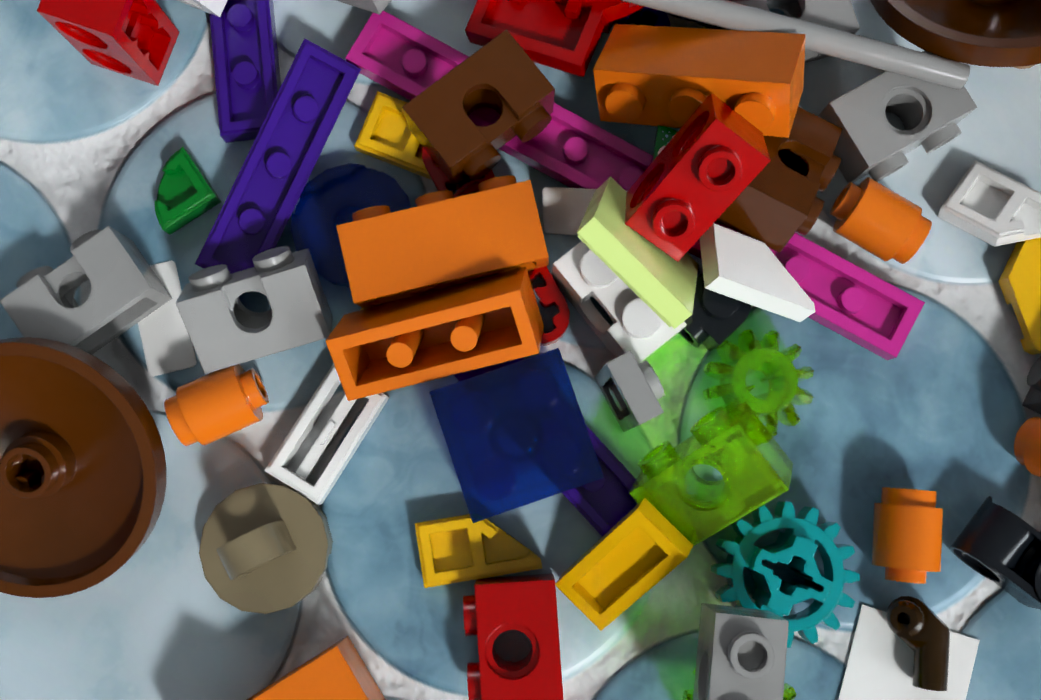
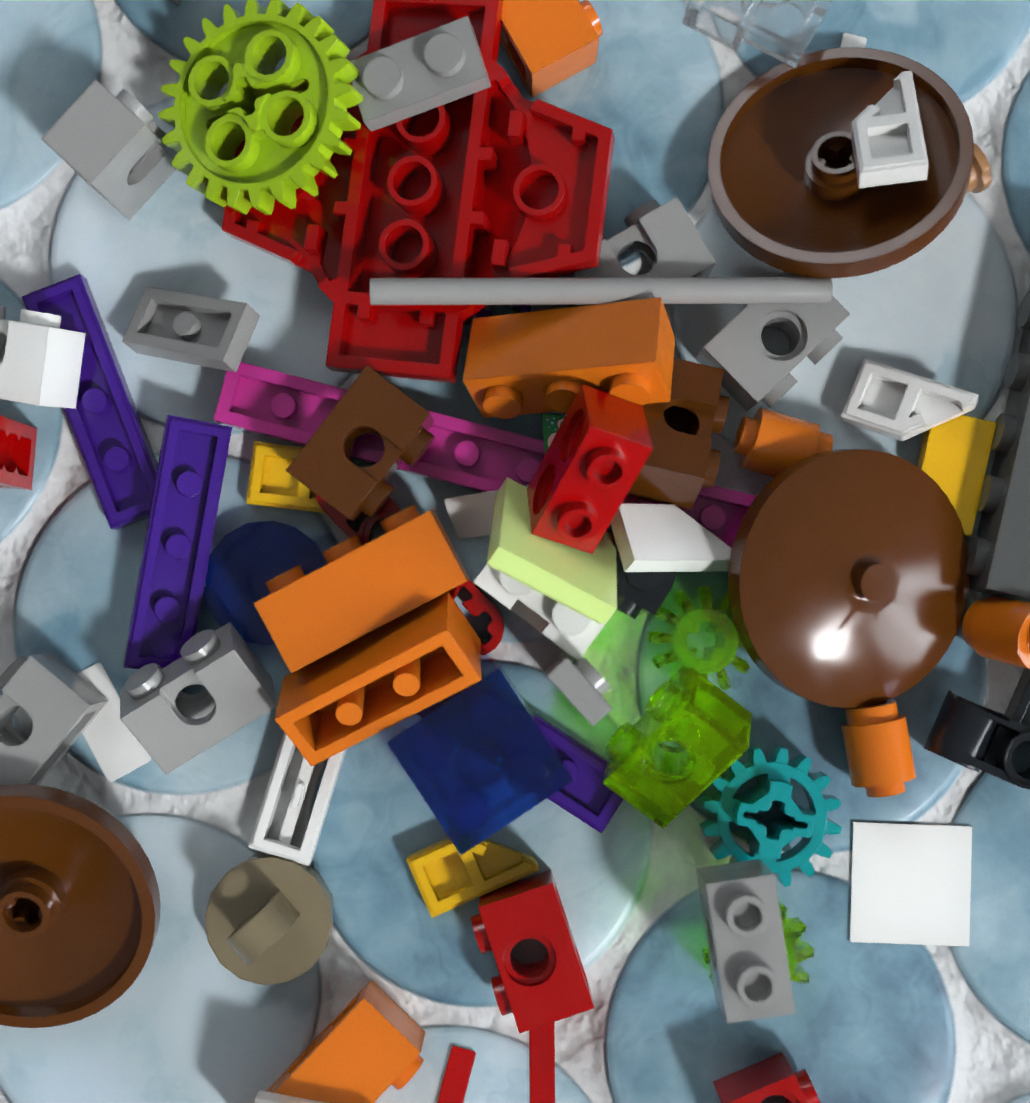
camera: 10 degrees left, 5 degrees up
(183, 193) = (89, 593): green tile -> none
(216, 405) = (184, 798): orange brick -> none
(624, 564) = (615, 849): yellow tile -> none
(918, 357) = (848, 577): none -> reddish brown dish
(926, 637) = (918, 838): dark brown arm -> none

